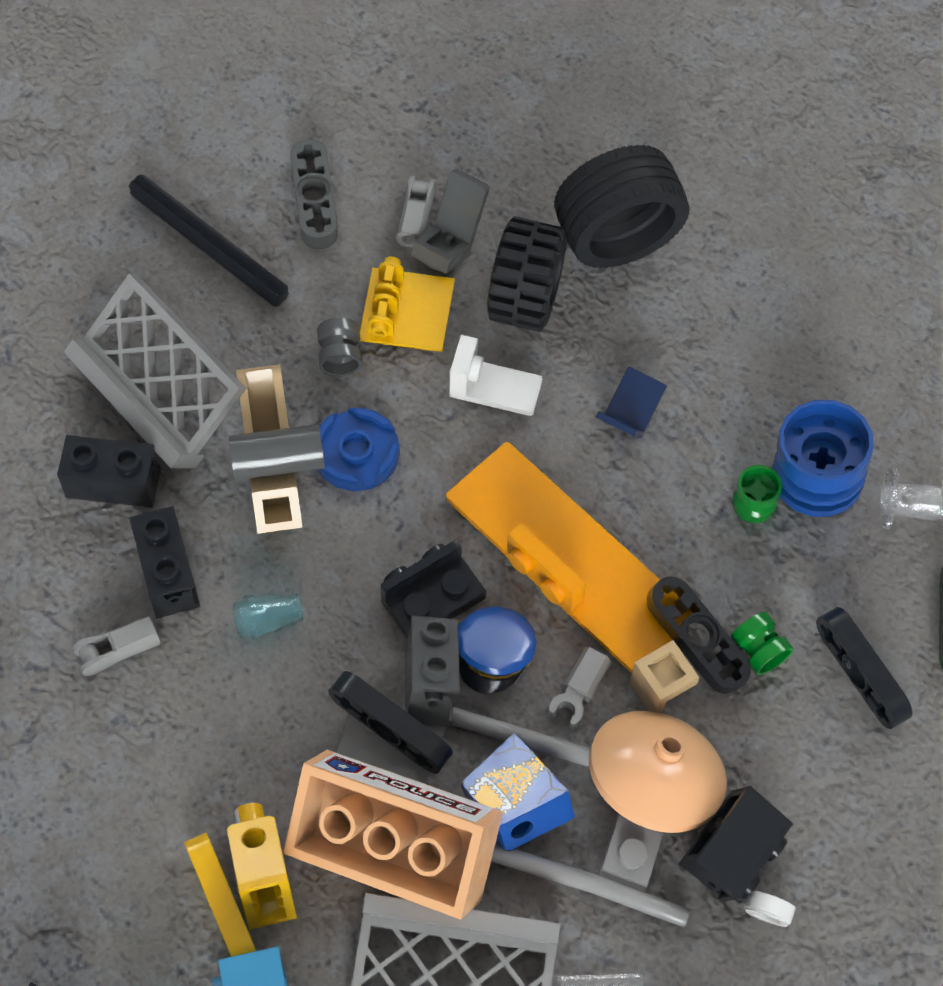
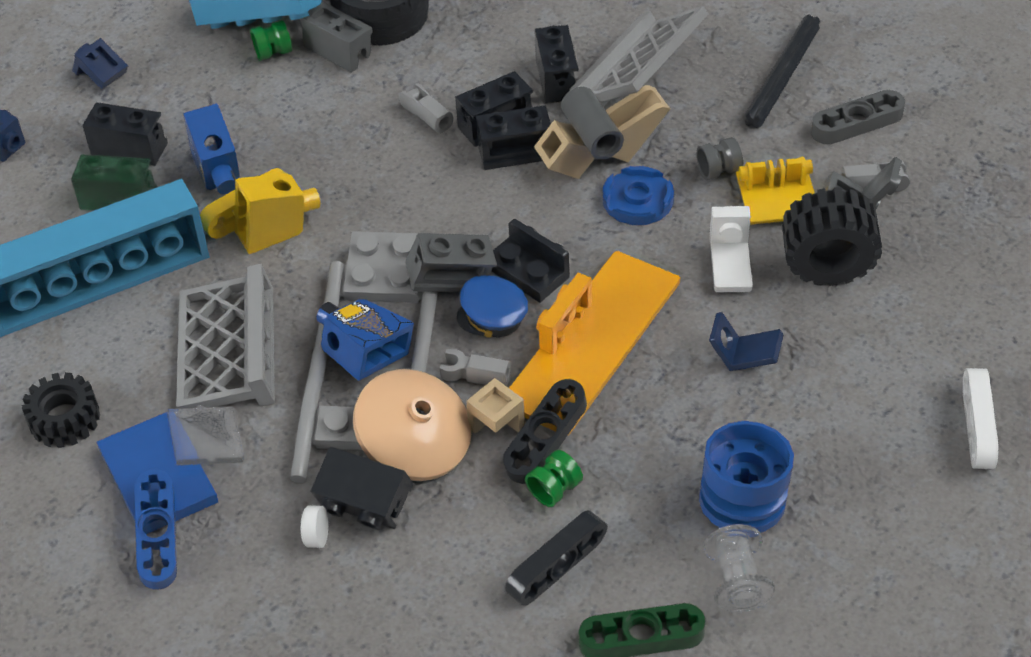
camera: 80 degrees right, 15 degrees down
(107, 930) = (216, 162): none -> blue torso
(225, 551) = (510, 136): none -> black hinge
(265, 613) = (473, 171): clear light blue cone -> none
(390, 722) = (396, 244): black beam -> none
(393, 833) = (306, 262): light nougat brick -> none
(621, 206) = (928, 277): black tyre -> none
(762, 485) = (693, 445): green wheel -> none
(798, 241) = (980, 418): none -> white beam

